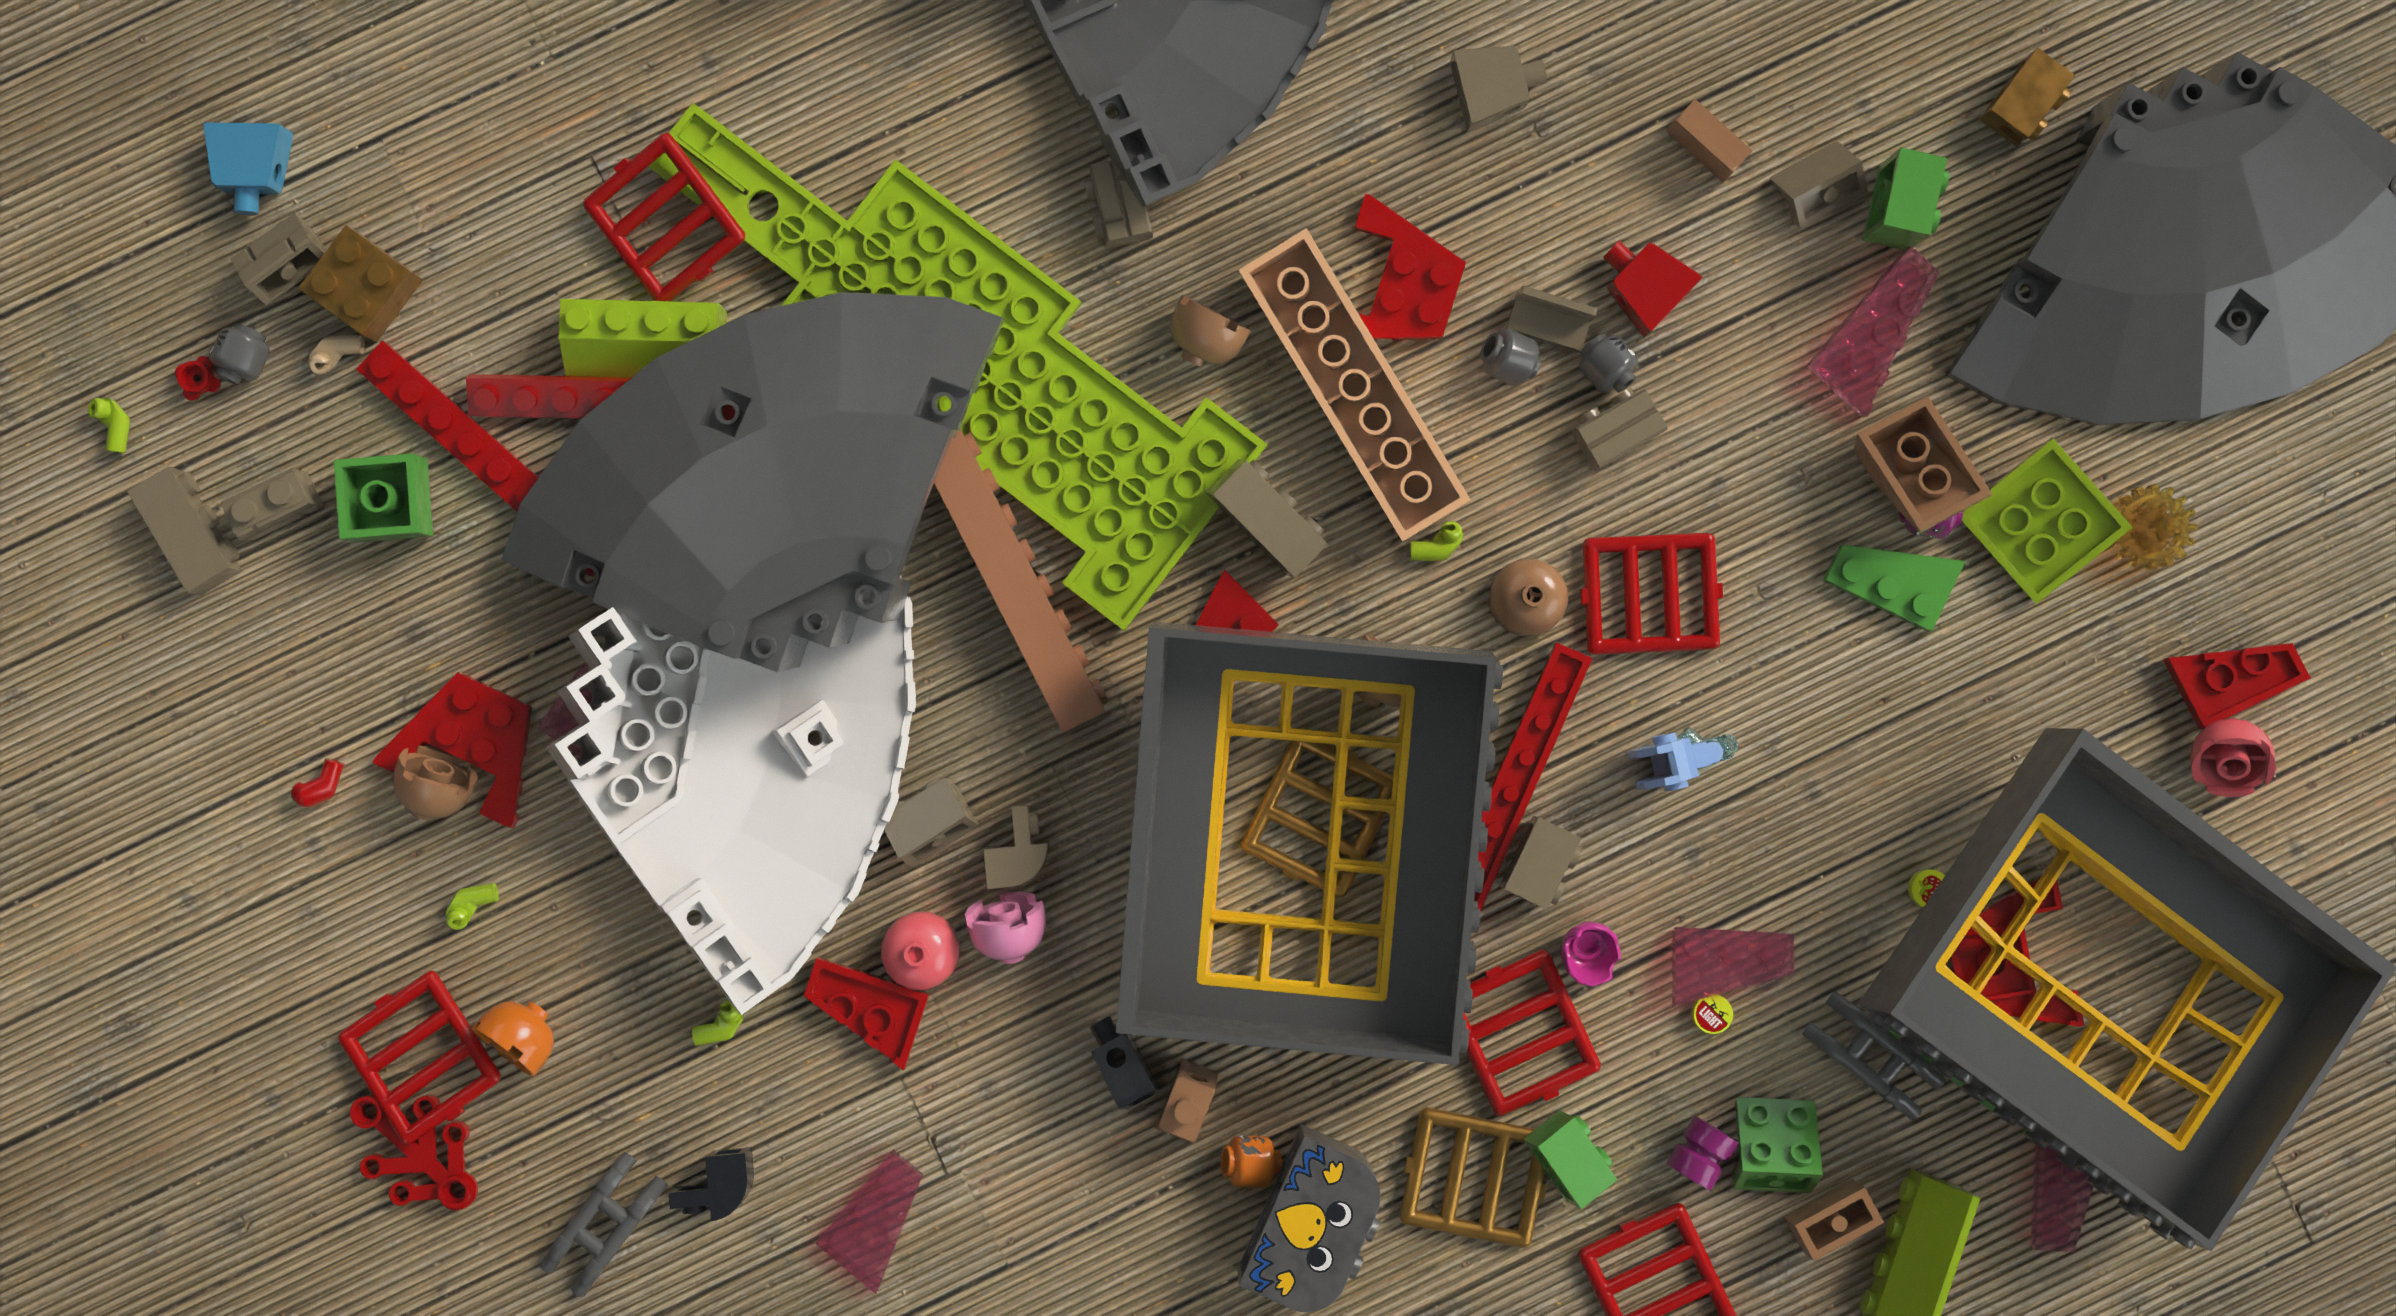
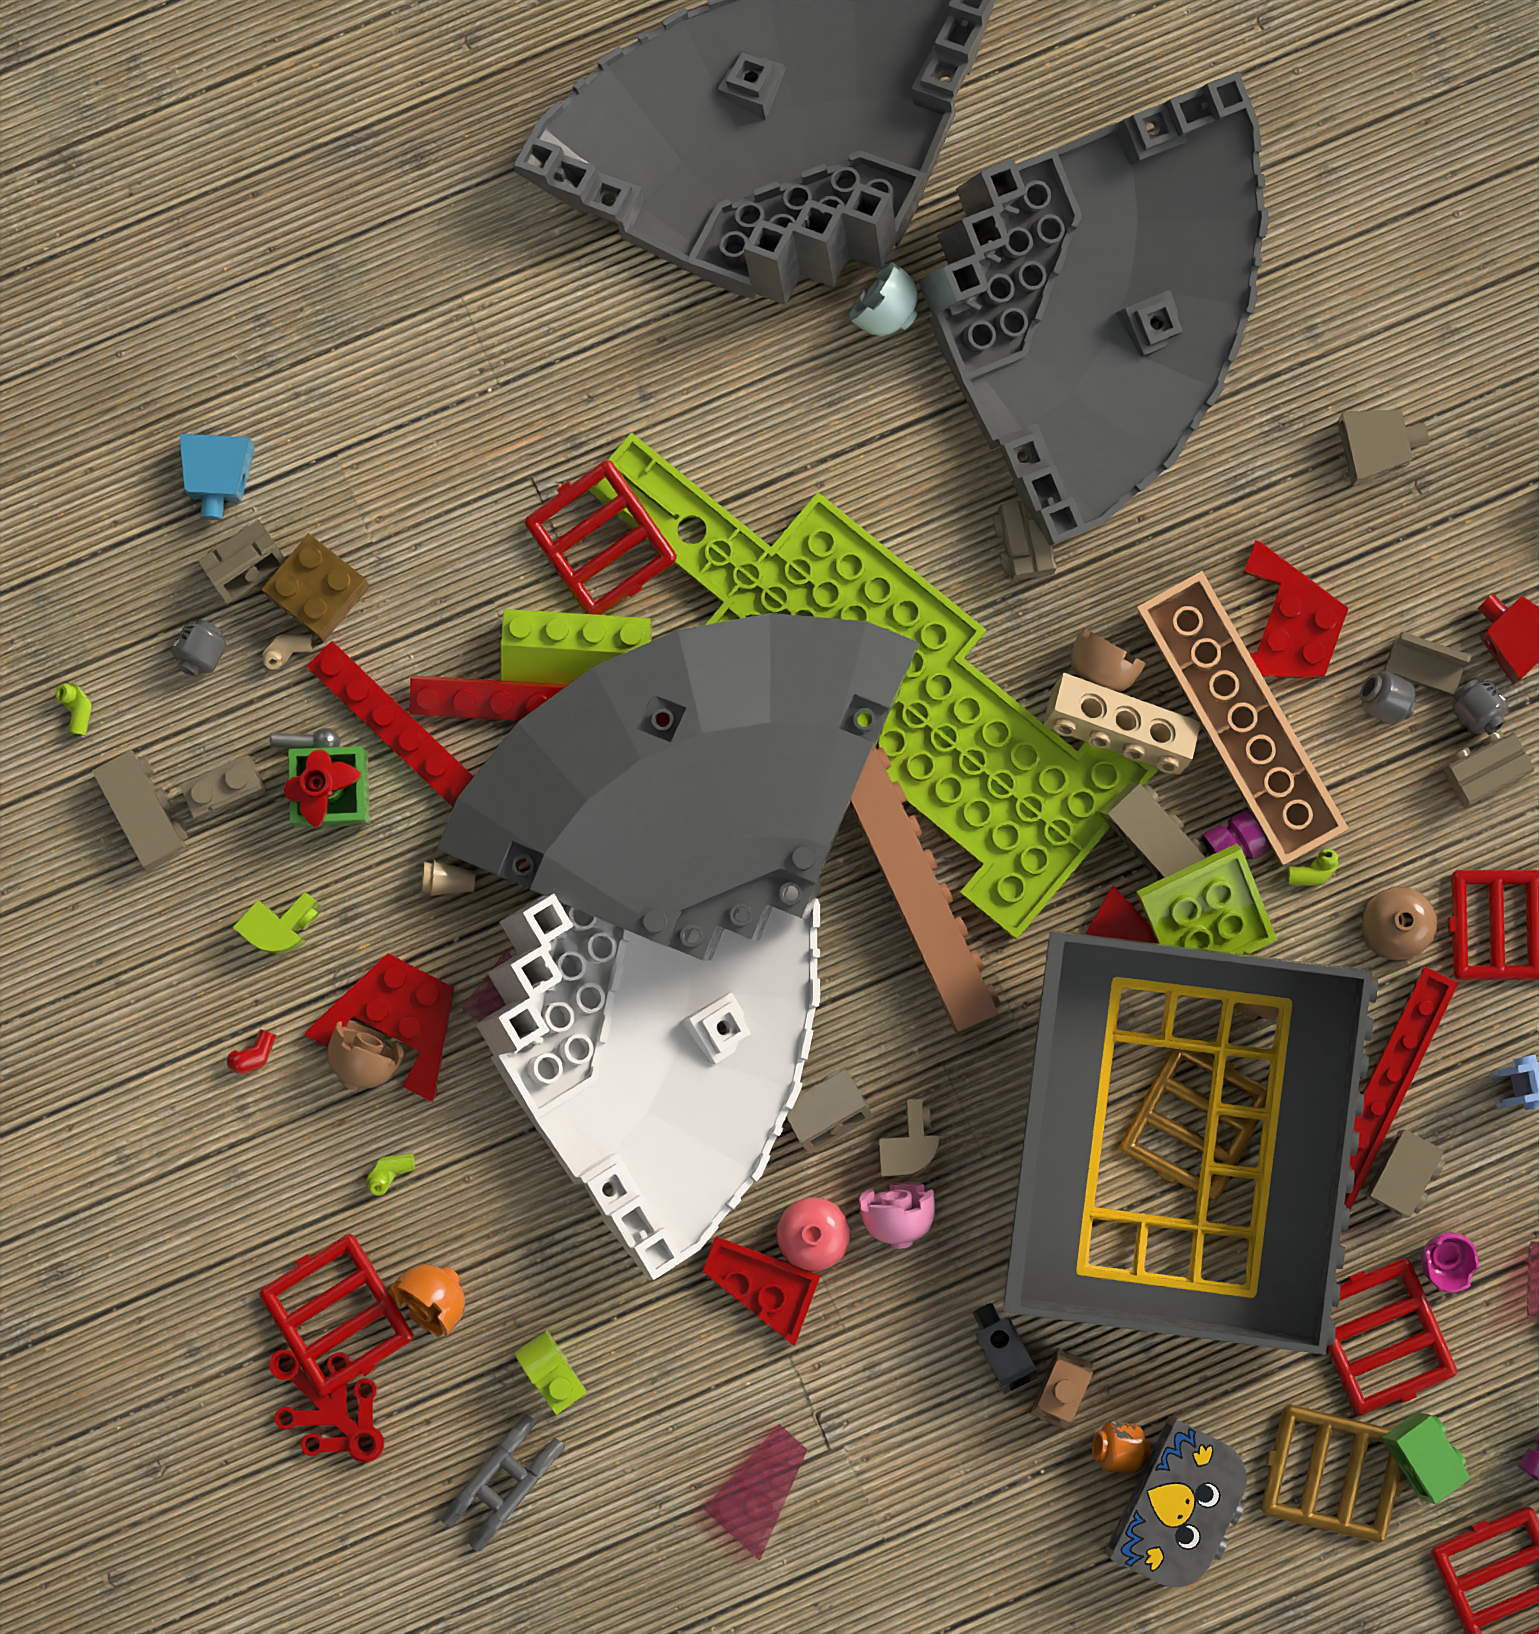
camera: 10 degrees right, 5 degrees down
(186, 376) = (149, 662): red plate -> none
(330, 655) = (278, 934): none -> lime brick
(364, 496) = (318, 784): none -> red animal
(377, 446) = (320, 739): none -> flat silver bar
(514, 591) = (444, 878): none -> tan cone
(640, 1104) = (550, 1372): none -> lime brick
(721, 1029) = (624, 1298): lime arm -> none
(727, 1186) = (624, 1448): black brick -> none
(1245, 390) = (1138, 718): none -> tan brick
(1325, 589) = (1209, 906): none -> lime plate
(1354, 517) = (1241, 830): none -> magenta wheel

